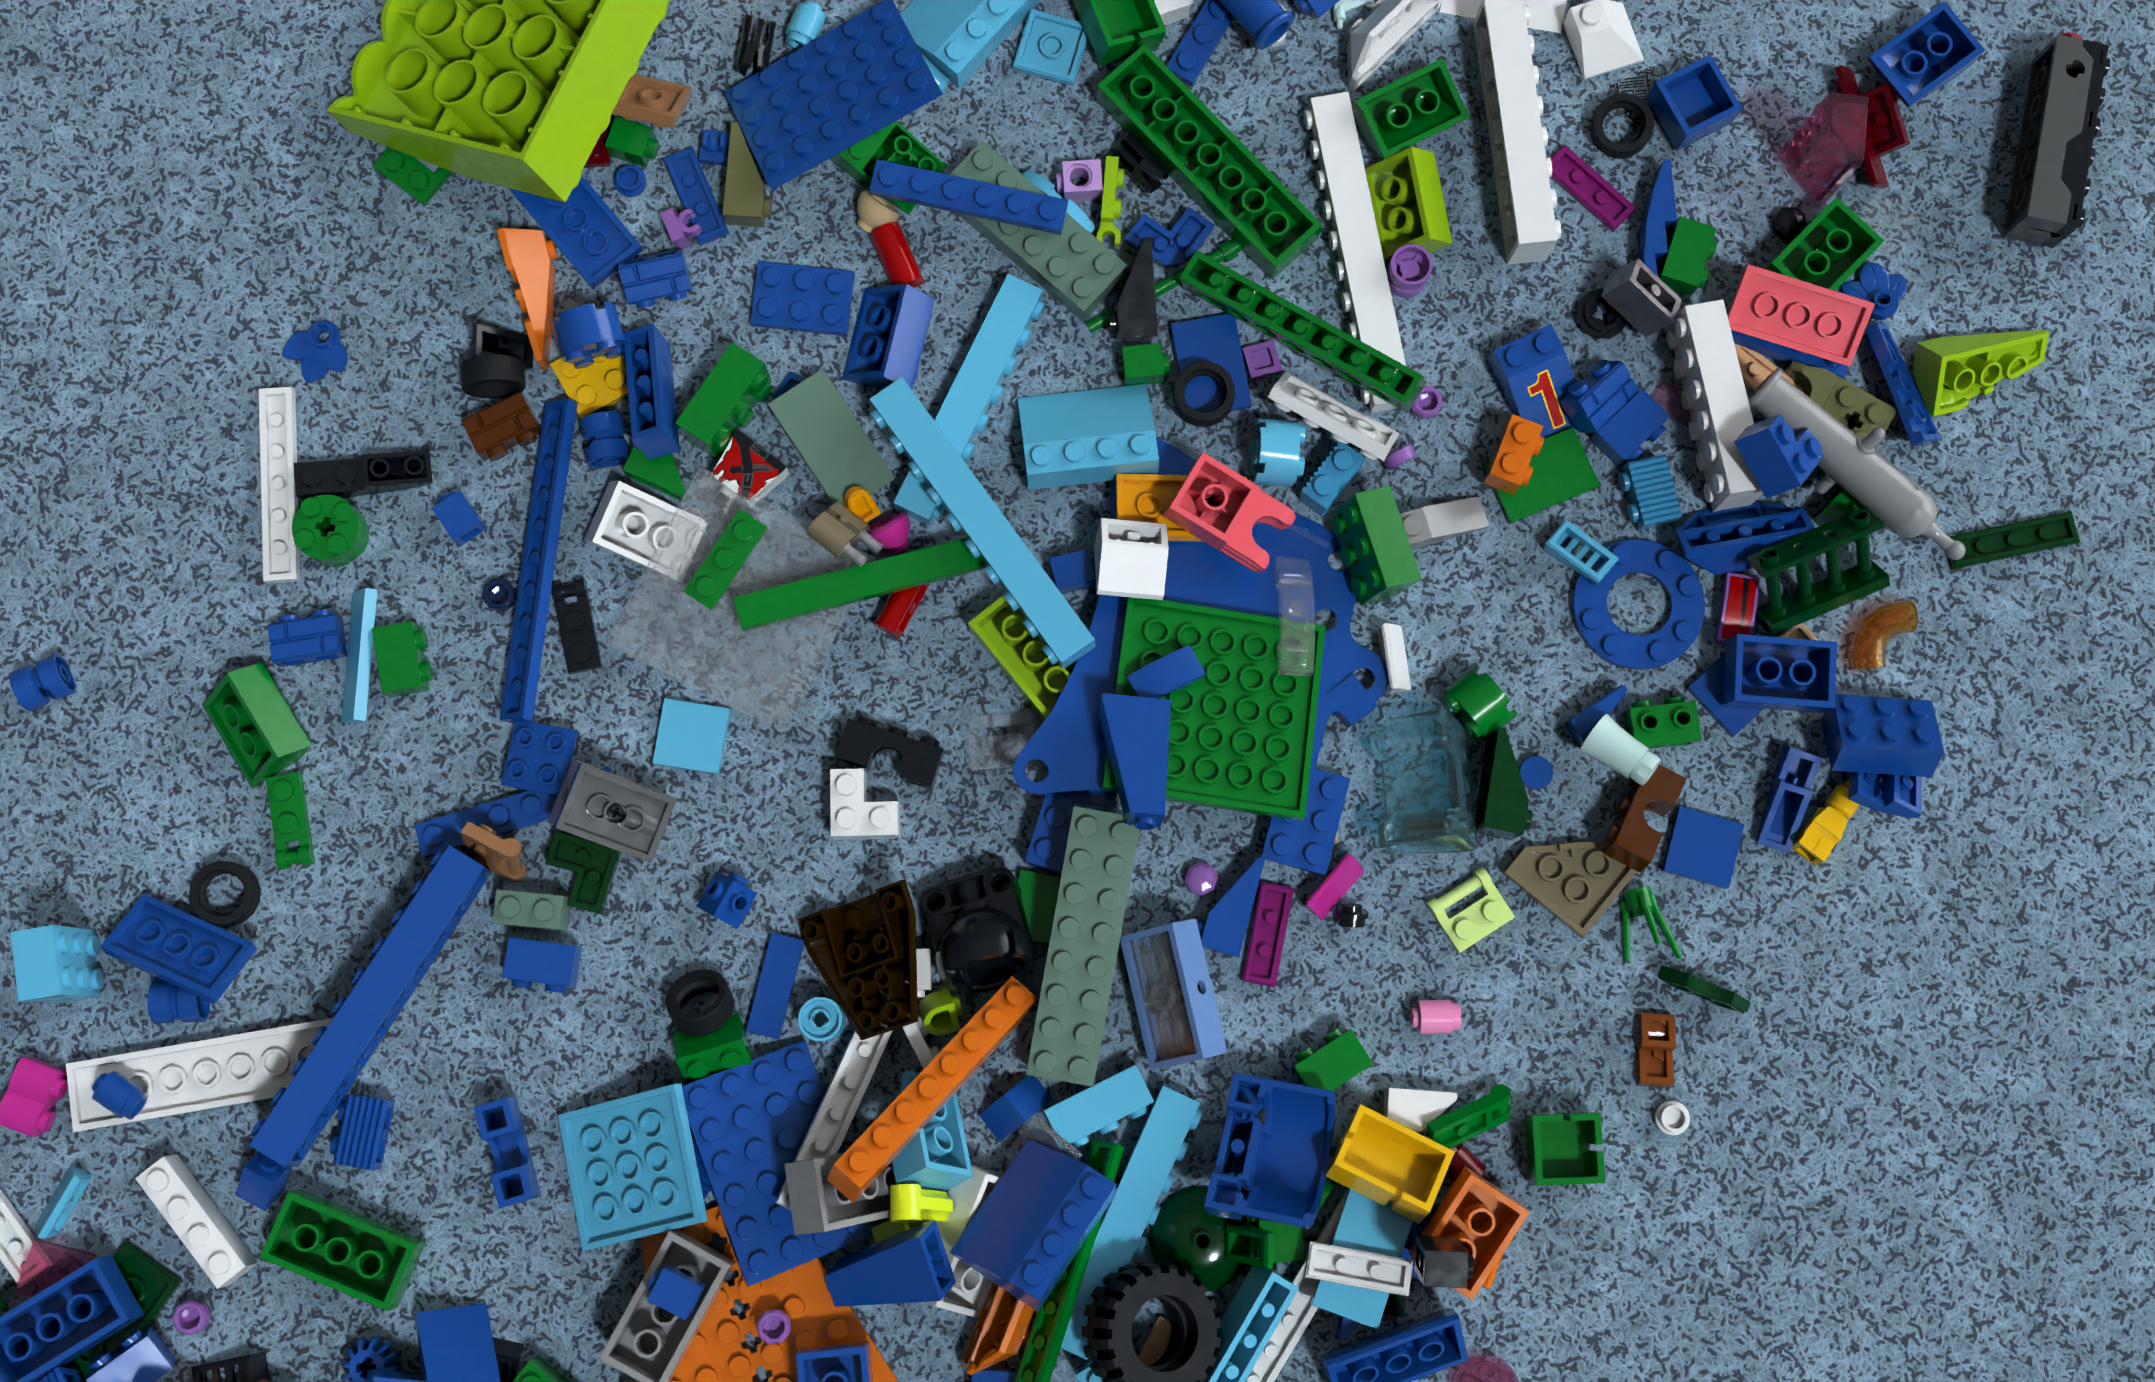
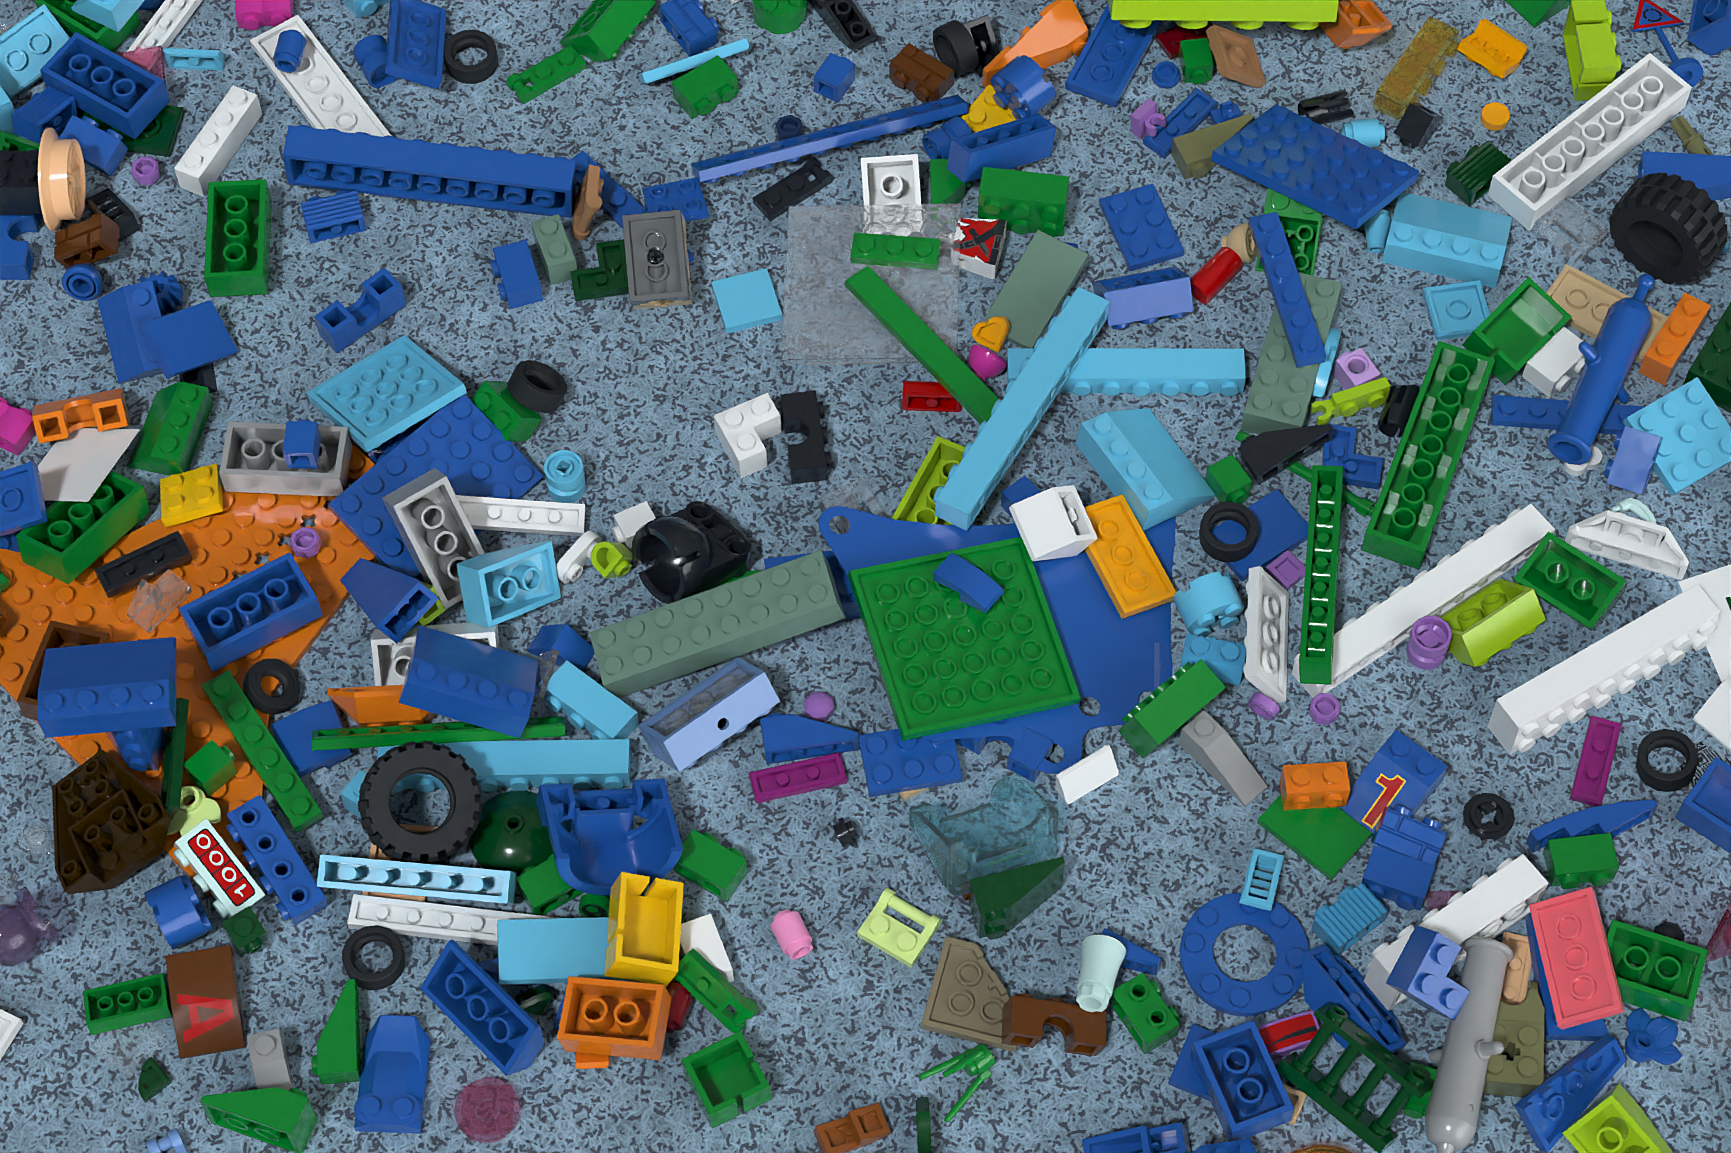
camera: 70 degrees right, 20 degrees down
(262, 1181) = (267, 164): blue brick -> none
(655, 278) = (1096, 119): blue brick -> none
(727, 898) = (620, 375): blue brick -> none
(775, 986) = (578, 438): blue tile -> none
(840, 531) = (962, 316): dark tan piece -> none
(869, 958) = (631, 480): dark brown wedge -> none
(914, 1204) = (446, 584): neon yellow piece -> none
(931, 1090) = (542, 552): orange brick -> none
(1138, 752) = (888, 579): blue slope -> none
(1235, 511) = (1133, 584): coral brick -> none
(1249, 1245) = (526, 854): green slope -> none
(1296, 616) = (1074, 666): clear slope -> none
(1334, 886) = (864, 808): dark pink slope -> none
(1358, 1268) = (543, 943): white tile -> none
(1442, 1261) = (576, 979): black brick -> none
(1478, 703) = (1081, 847): green brick -> none
(1536, 772) = (1047, 931): blue tile -> none
(1641, 298) = (1515, 827): flat silver brick -> none
(1702, 847) = (1054, 1097): blue tile -> none

